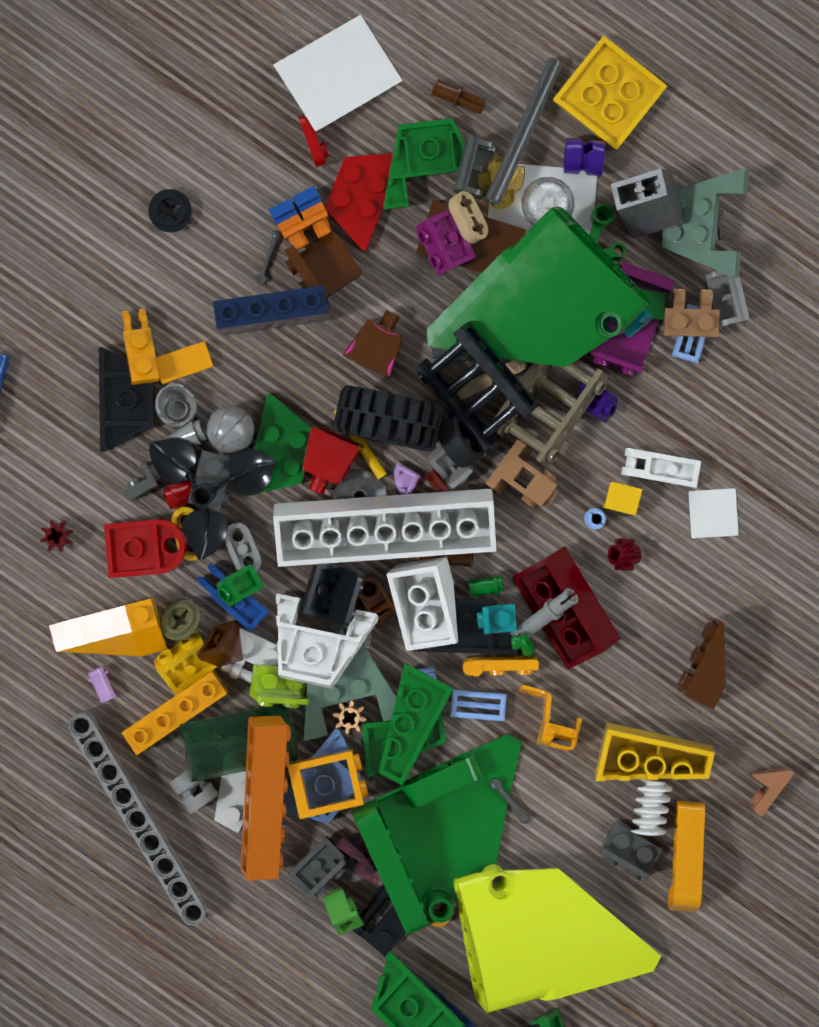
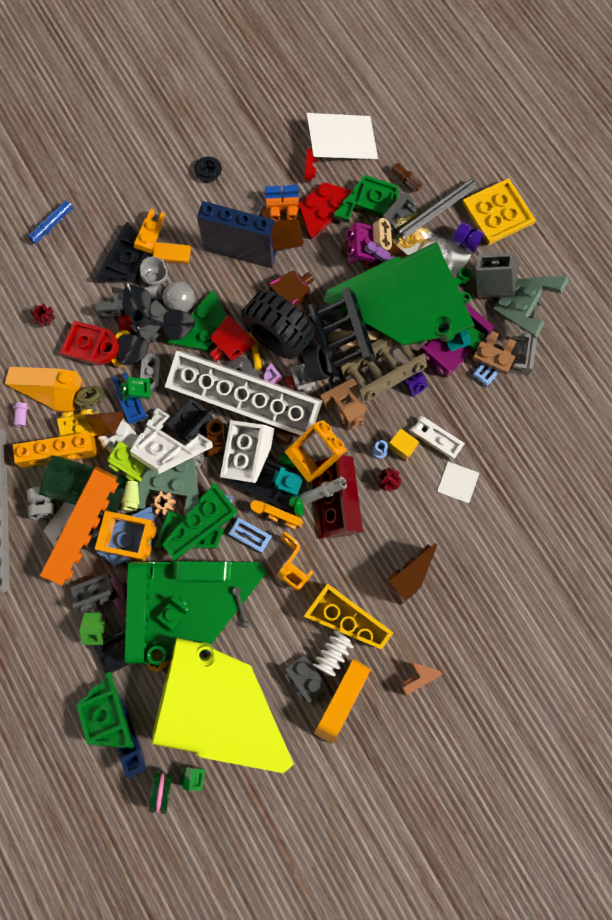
camera: 25 degrees right, 15 degrees down
(306, 729) = (130, 496): none -> yellowish green cone
(432, 849) = (173, 613): none -> green bracket
(479, 248) = (378, 252): none -> medium lavender axle
(519, 591) = (303, 460): none -> light orange window

